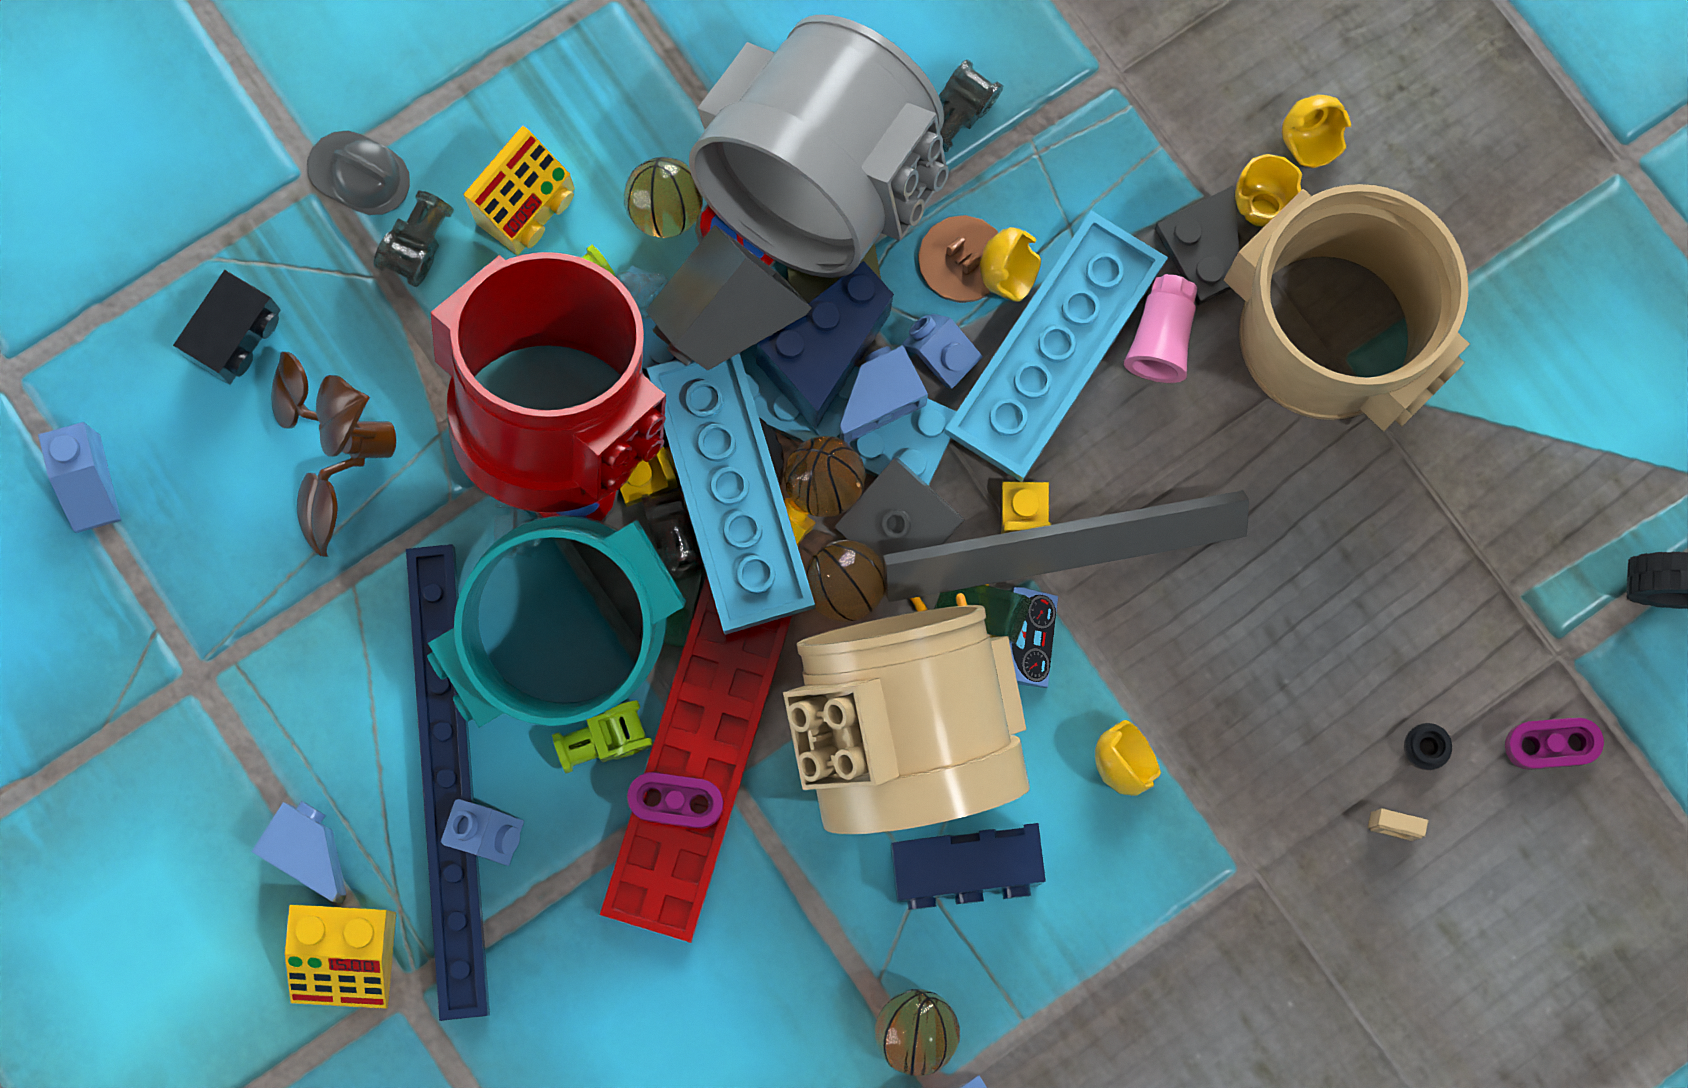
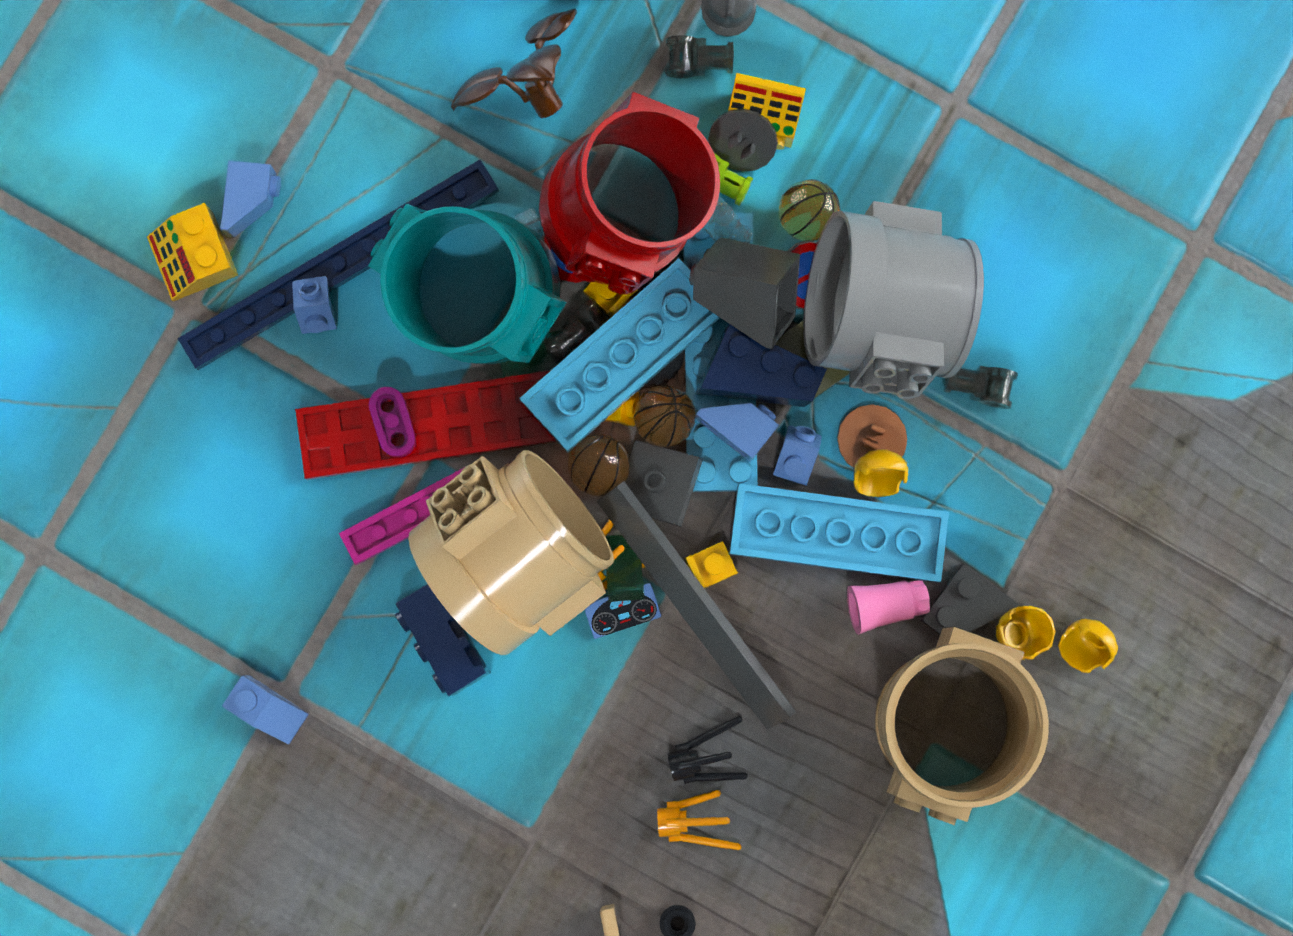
camera: 60 degrees right, 5 degrees up
(541, 223) = (743, 139): none -> dark grey piece
(604, 736) = (418, 361): lime connector -> none
(796, 846) = (389, 525): none -> dark pink plate
(917, 1032) = (313, 658): piece -> none
(1126, 759) = (567, 716): yellow hair -> none
(1245, 648) = (686, 763): none -> black plant
(1308, 693) = (674, 822): none -> light orange plant

